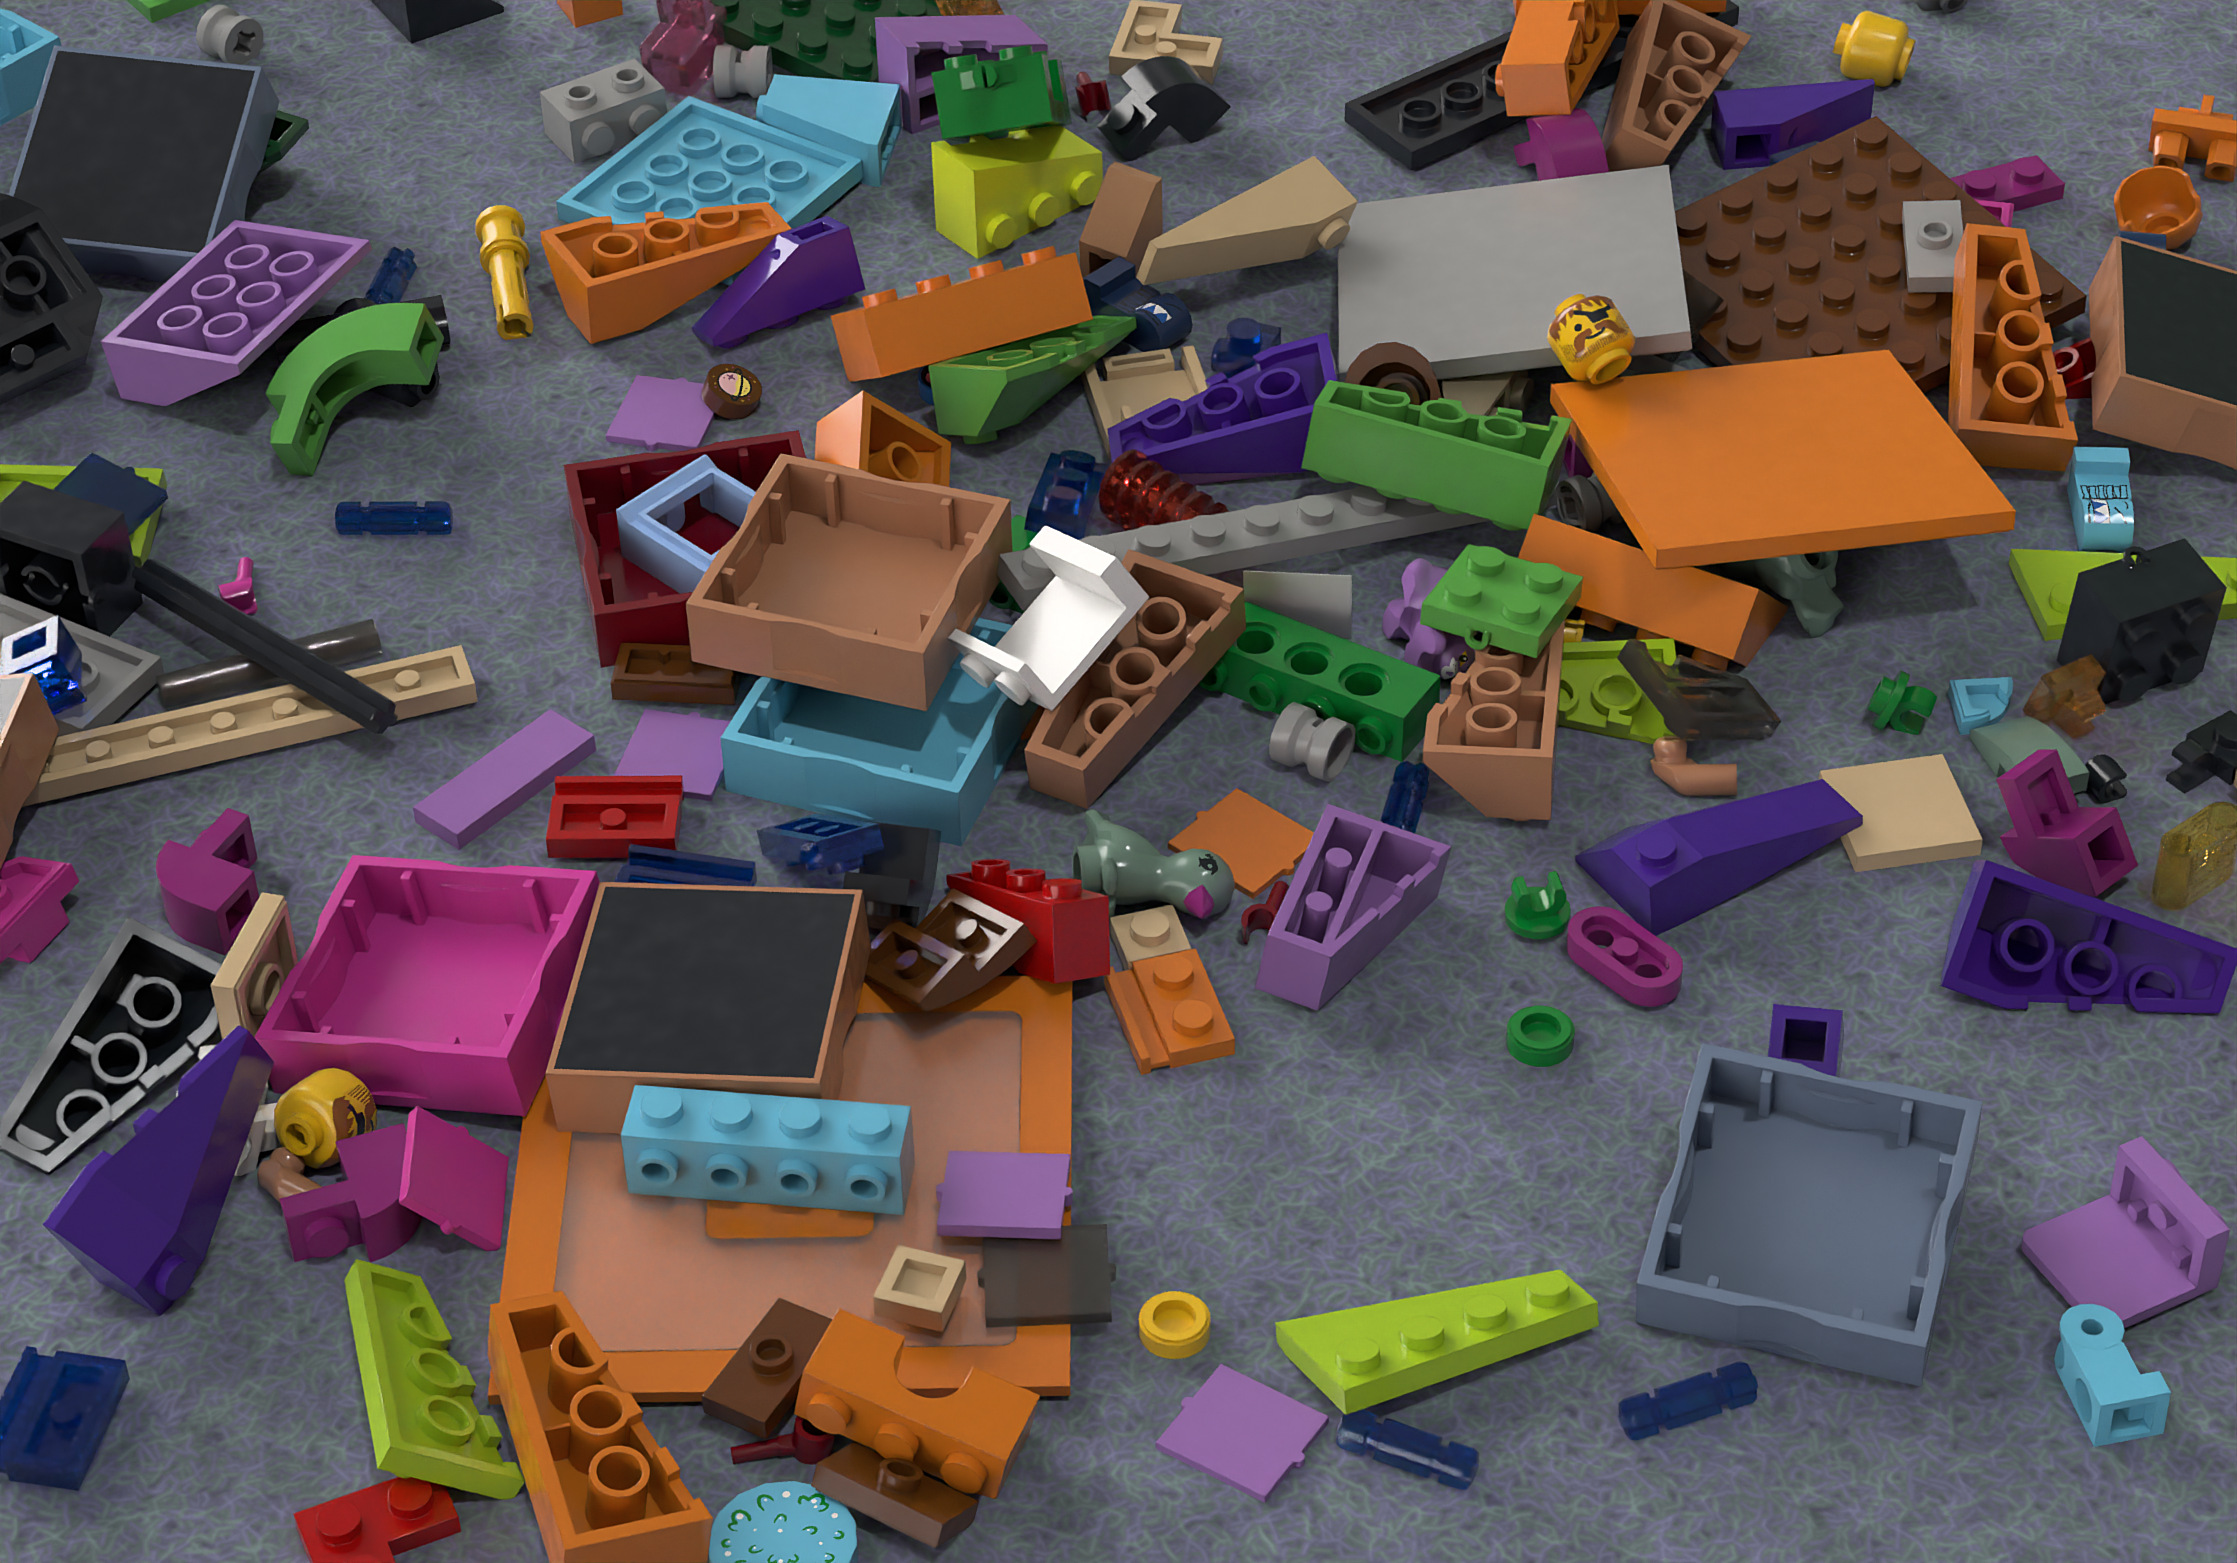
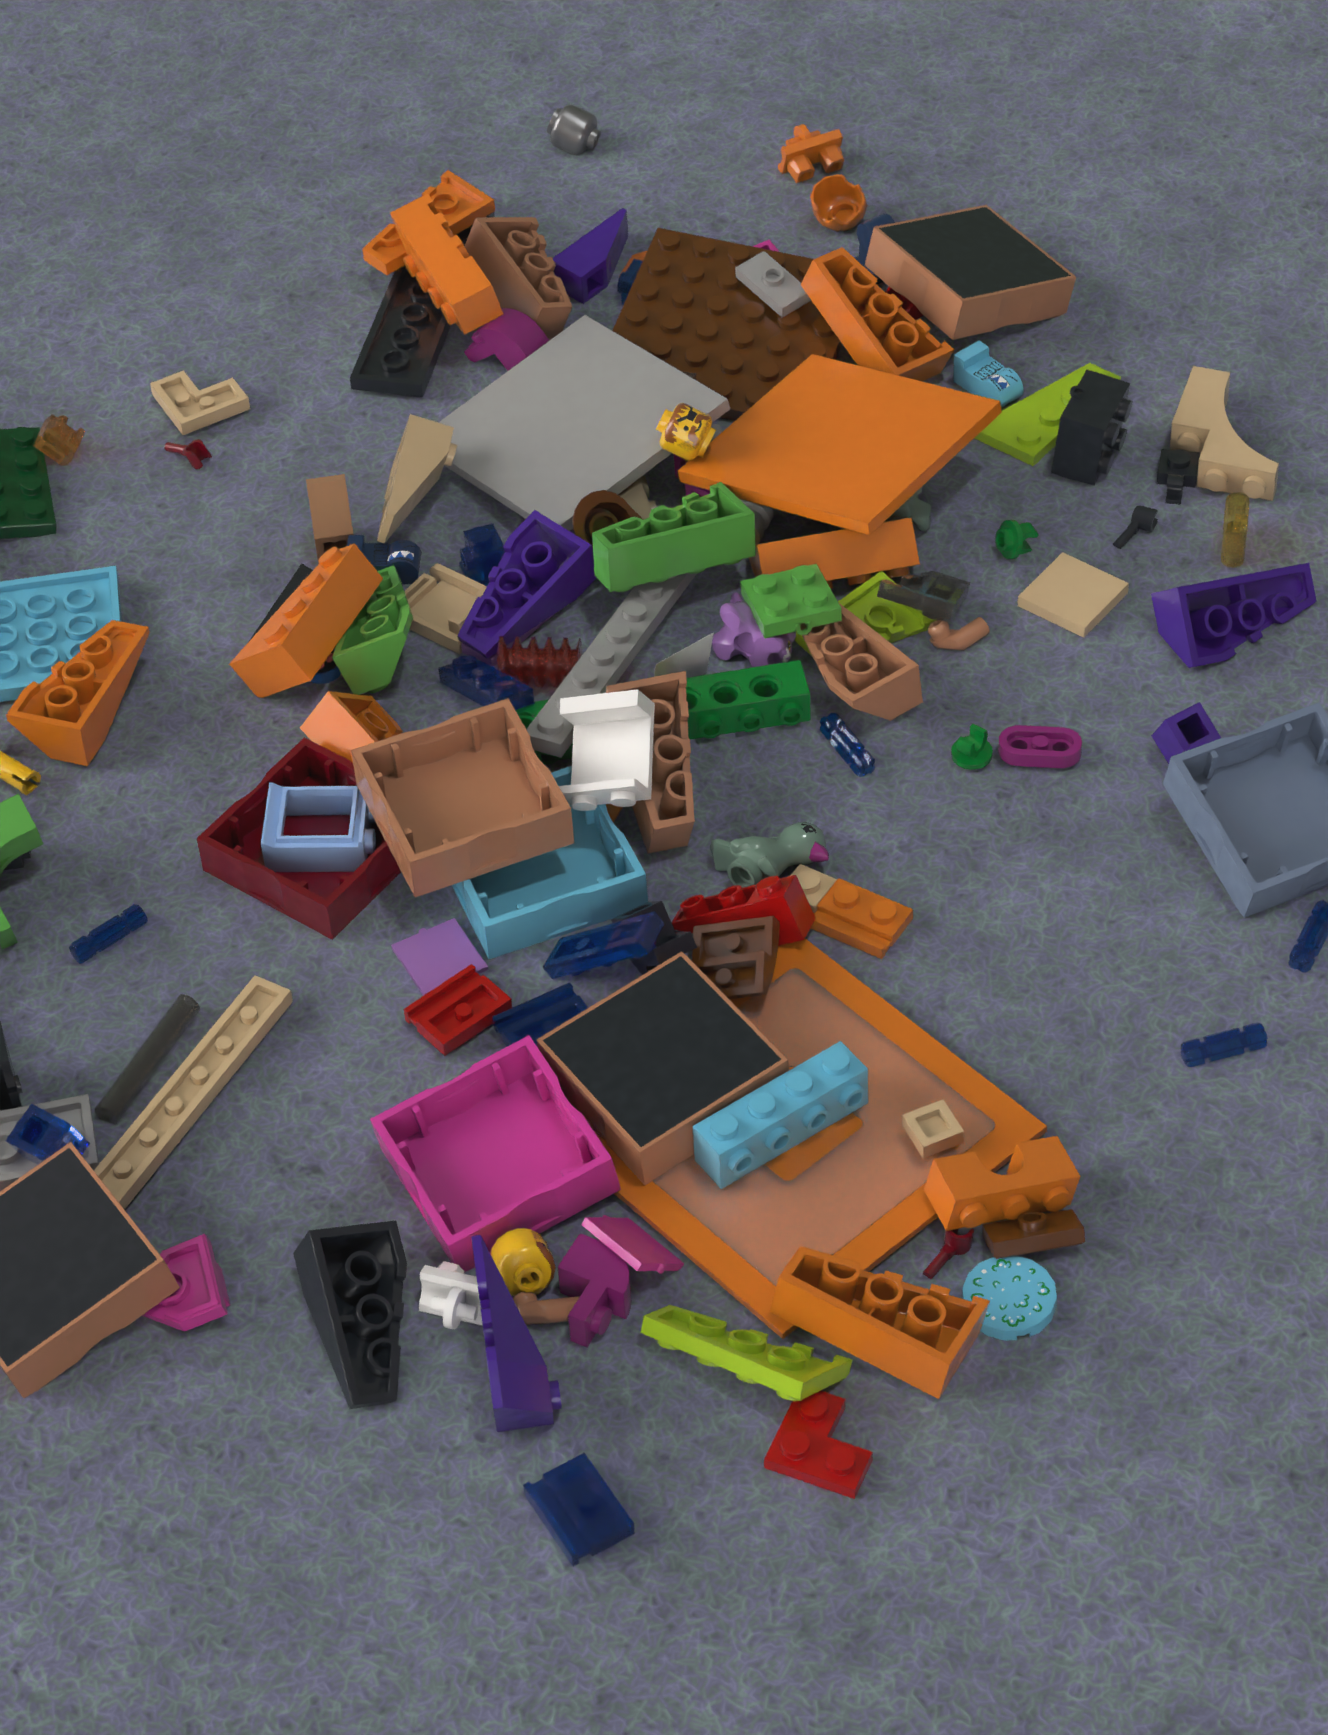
camera: 40 degrees left, 5 degrees up
(210, 884) = (290, 1200): magenta brick -> none
(240, 592) = (74, 1032): dark pink hand -> none
(255, 966) = (411, 1218): tan tile -> none
(265, 646) = (148, 1047): black axle -> none
(504, 779) = (365, 1031): medium lavender tile -> none
(662, 415) = (182, 779): medium lavender piece -> none
(670, 675) = (387, 915): reddish brown plate -> none
(731, 391) = (210, 742): reddish brown tile -> none
(766, 1369) = (908, 1217): reddish brown plate -> none
(790, 276) = (168, 661): dark purple slope -> none
(838, 114) = (68, 546): medium azure slope -> none
(918, 45) = (103, 480): medium lavender wedge -> none
(1000, 95) = (188, 480): green brick -> none
(1004, 1195) = (909, 1058): medium lavender piece -> none
(1011, 185) = (228, 532): neon yellow wedge -> none
(1048, 1279) = (974, 1082): clear smoke piece -> none
(1162, 95) = (251, 431): black brick -> none
(1174, 1325) = (1051, 1064): yellow tile -> none
(1242, 1433) = (1141, 1092): medium lavender piece -> none
(1250, 838) = (786, 804): orange piece -> none
(1263, 915) = (849, 839): dark red hand -> none
(1310, 741) = (763, 736): light grey wheel -> none
(1347, 904) = (890, 807): medium lavender wedge -> none
(1420, 1340) = (1175, 987): lime wing -> none
(1540, 1036) = (1044, 812): green tile -> none
(1700, 858) = (1015, 671): dark purple wedge -> none
(1874, 48) = (592, 190): yellow head -> none
(1979, 701) = (1043, 516): medium azure tile -> none
(2014, 740) = (1102, 525): sand green slope -> none
(2020, 182) = (745, 227): magenta plate -> none
(2056, 837) = (1167, 561): magenta brick -> none
(2069, 696) = (1087, 485): clear orange tile -> none

